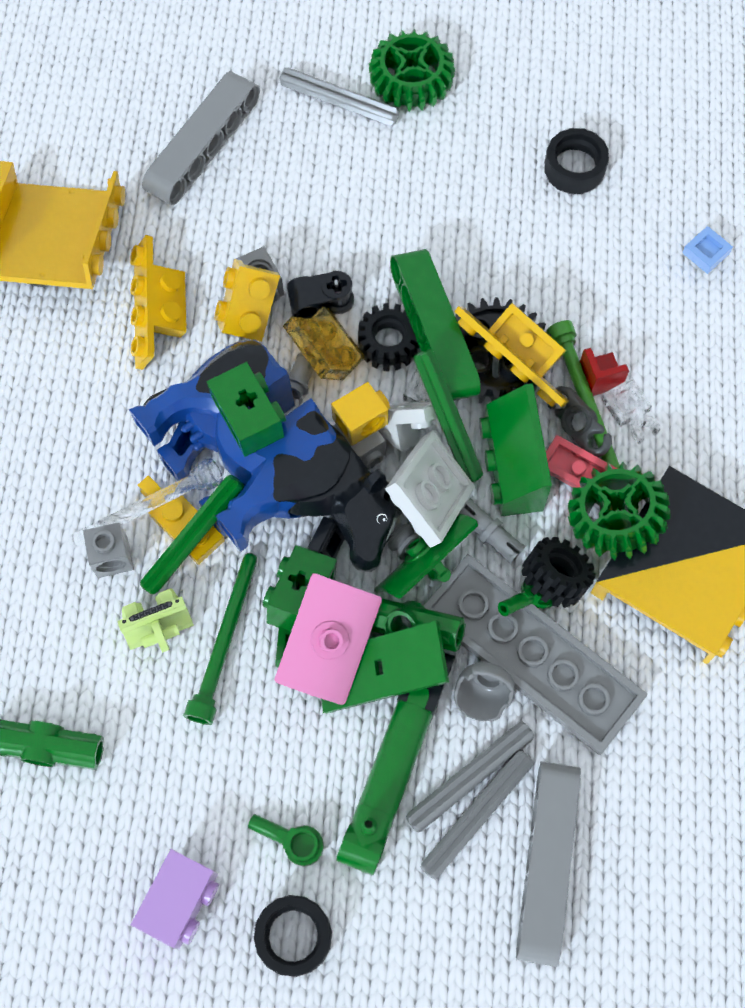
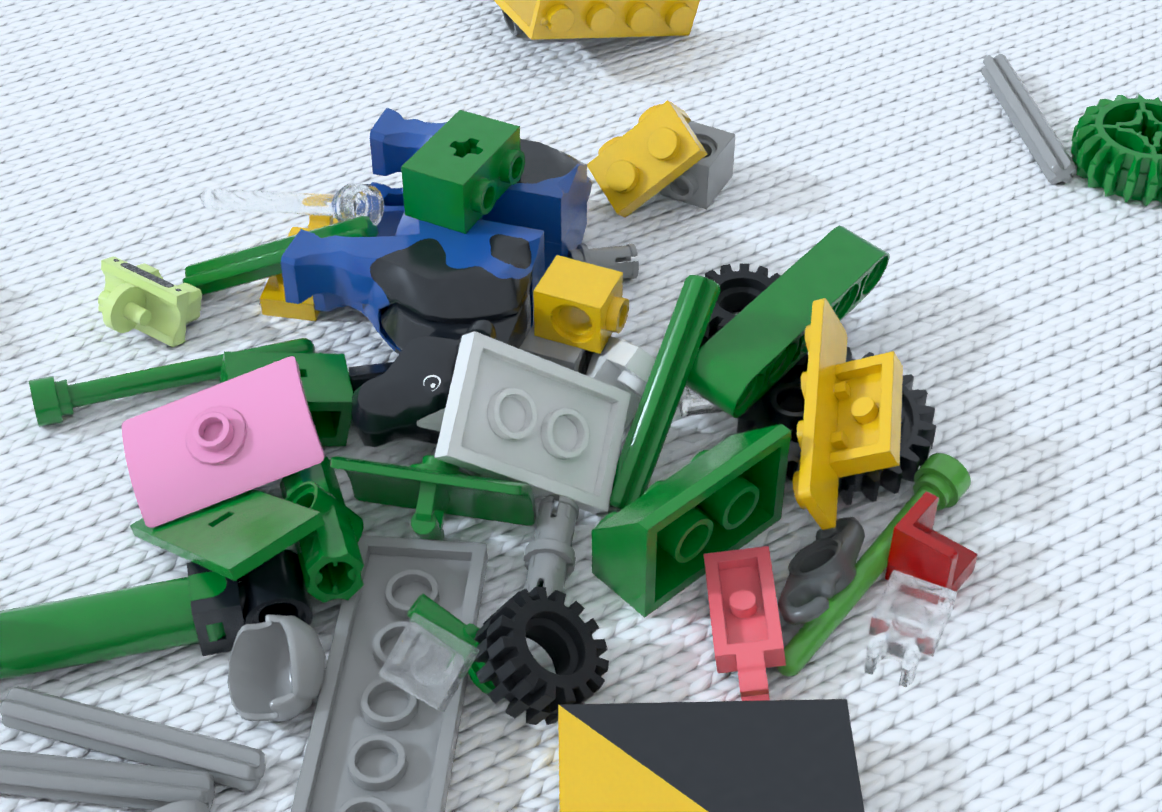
camera: 55 degrees right, 25 degrees down
(108, 550) = (210, 215): light grey brick -> none
(157, 302) = (584, 107): yellow bracket -> none
(201, 138) = (849, 52): light grey beam -> none
(312, 293) = (730, 226): black piece -> none
(325, 344) = (659, 254): clear yellow bracket -> none
(539, 622) = (428, 662): none -> clear plate
(619, 529) = (697, 658): green gear -> none

